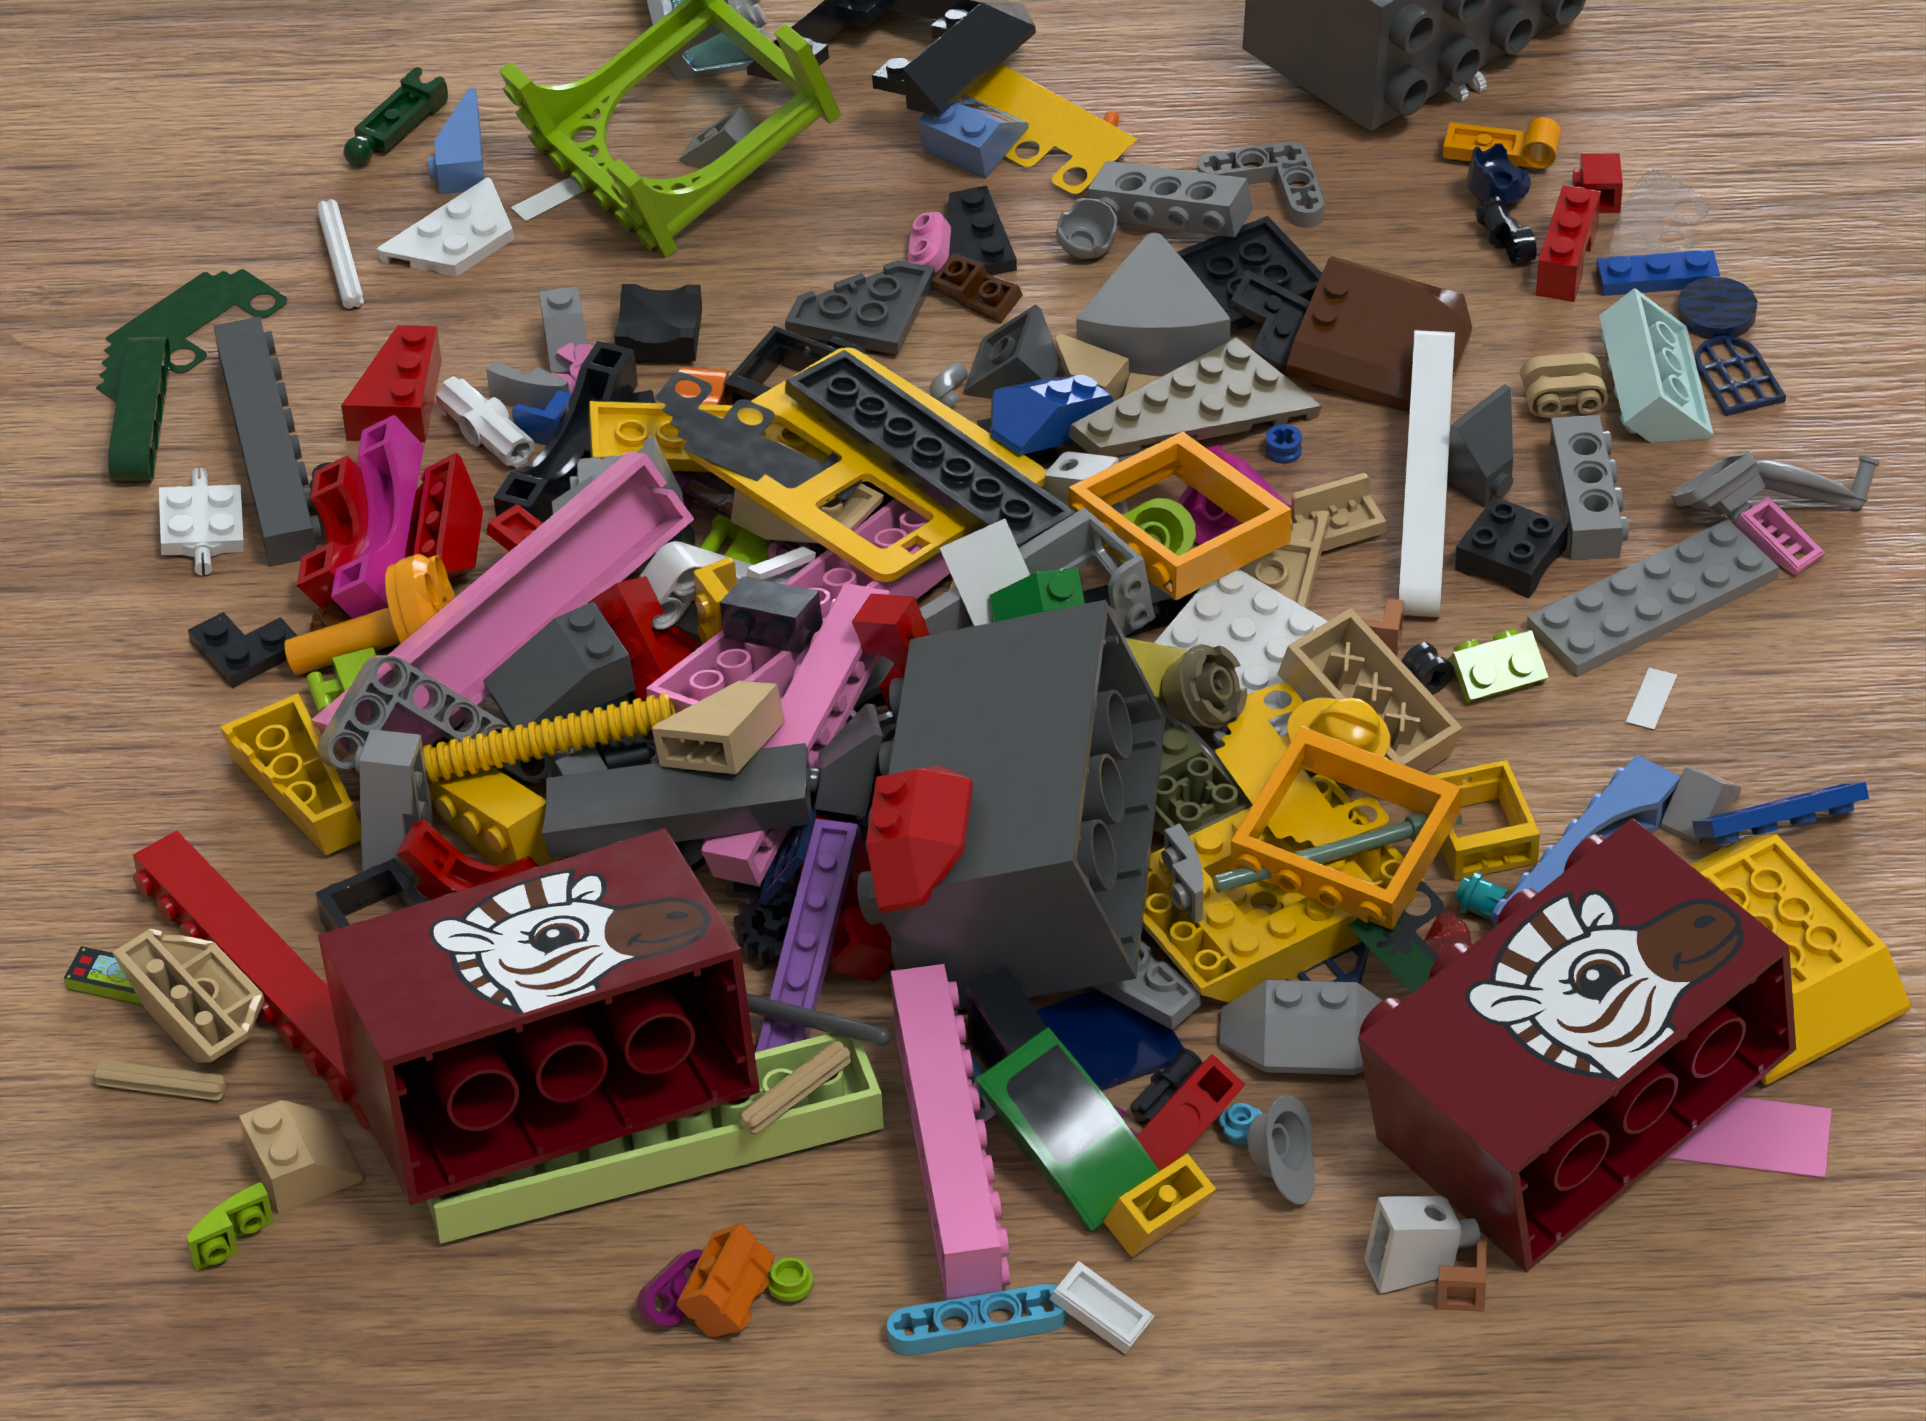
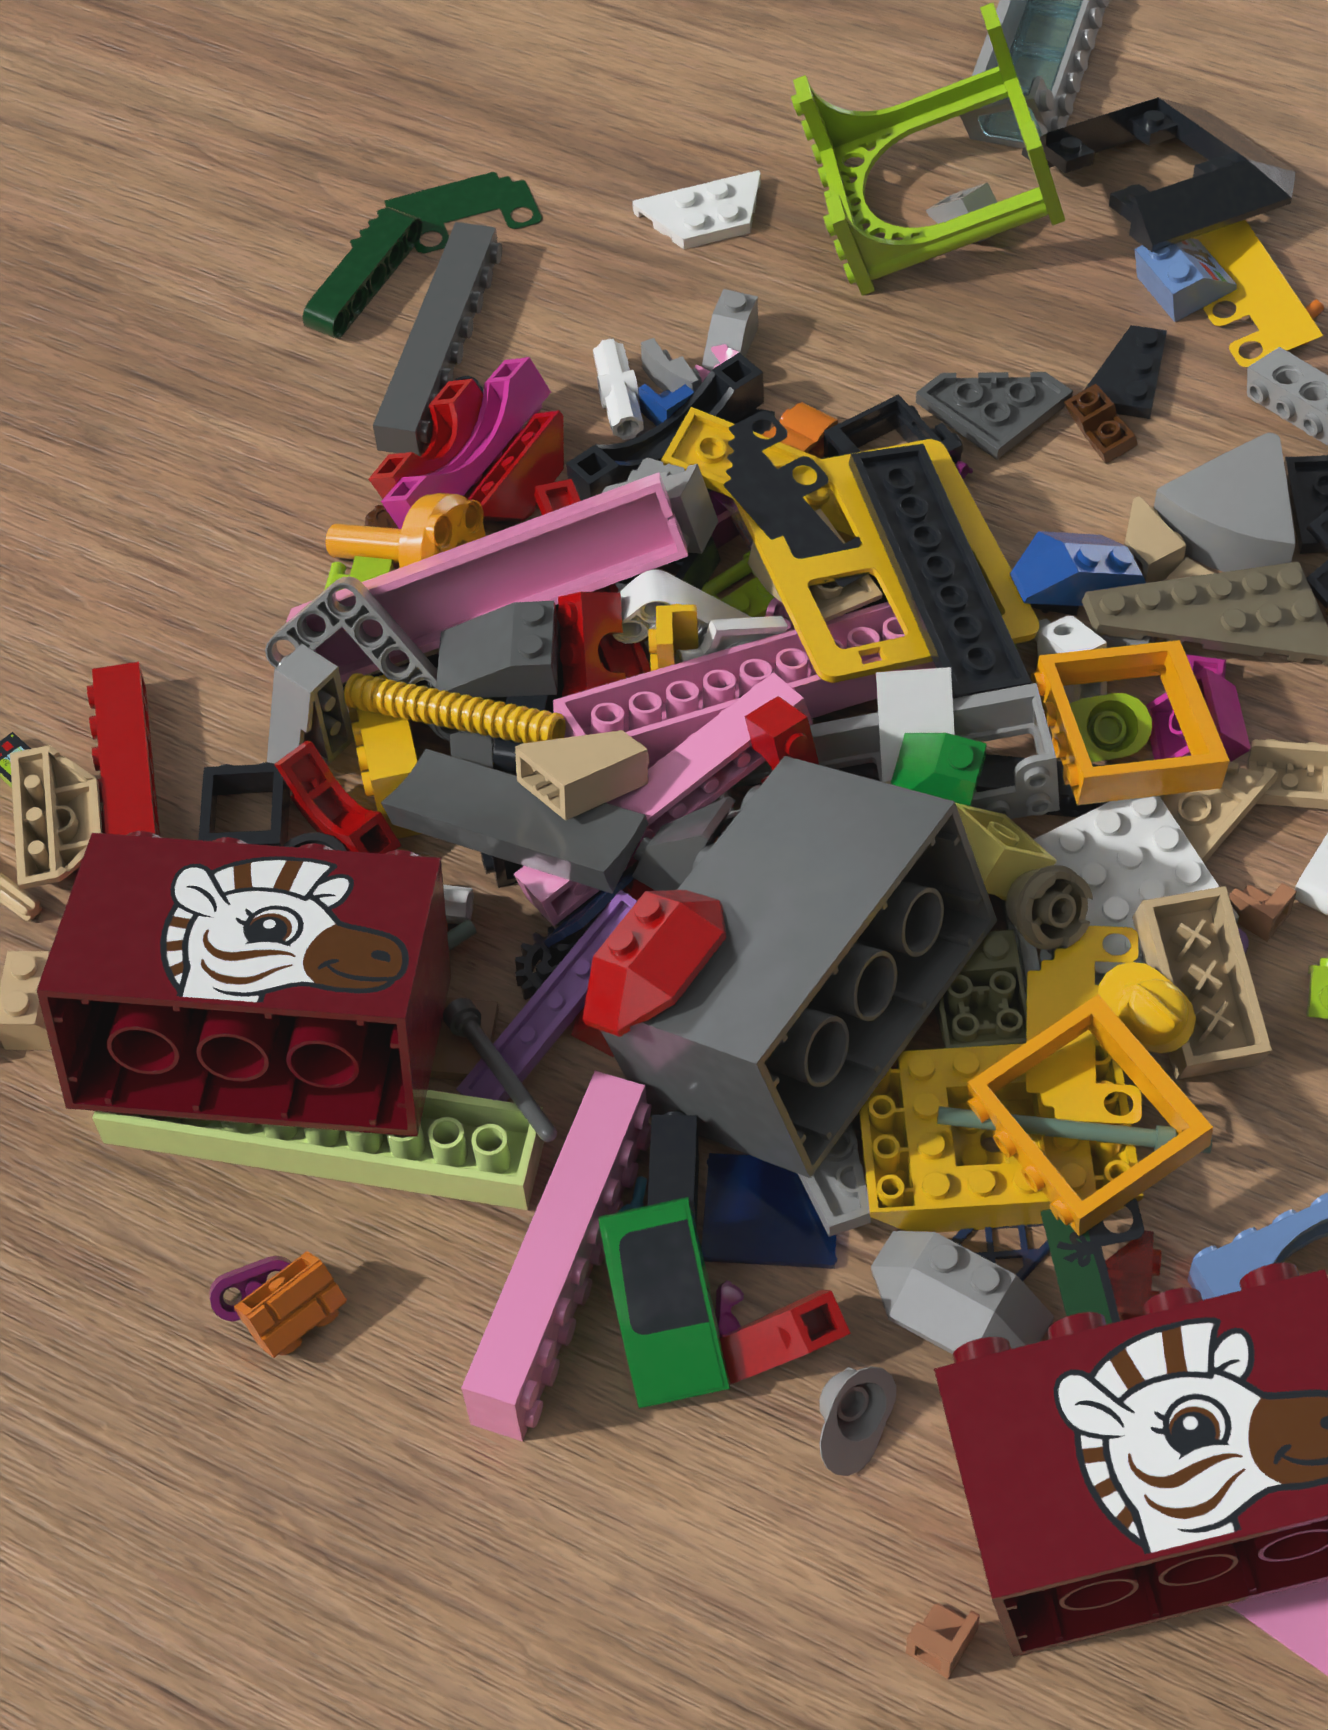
camera: 30 degrees right, 10 degrees up
(201, 520) = (347, 388): white plate -> none
(239, 655) = (300, 519): black plate -> none
(282, 758) = (256, 614): yellow wedge -> none
(340, 254) = (603, 195): white axle -> none
(396, 116) = (720, 91): dark green plate -> none
(397, 383) = (567, 329): red wedge -> none
(459, 148) = (752, 135): medium blue slope -> none
(547, 199) = (796, 207): white sticker -> none
(660, 322) = (811, 354): black brick -> none
(771, 614) = (696, 674): black brick -> none
(790, 1279) = (354, 1326): lime plate -> none
(794, 1087) = (448, 1146): tan axle -> none
(929, 240) = (1085, 364): bright pink plate -> none
(943, 384) = (1020, 502): light grey arm -> none
(979, 1326) = (489, 1442): medium azure beam -> none
(1014, 355) = (1091, 503): dark grey slope -> none
(1087, 229) = (1227, 404): light grey hair -> none
(1102, 1307) = (595, 1496): white tile -> none
(1159, 1205) = (704, 1418): yellow brick -> none
(1164, 1084) = (792, 1289): black axle -> none
(1187, 877) = (914, 1093): light grey slope -> none
(1237, 1122) = (842, 1349): medium azure plate -> none
(1277, 446) = (1290, 672): blue bush -> none
(1413, 1239) = (916, 1579): white torso -> none
(1427, 667) = (1283, 967): black wheel -> none
(1479, 895) = (1196, 1229): teal hose -> none
(1497, 848) = (1240, 1187): yellow window -> none

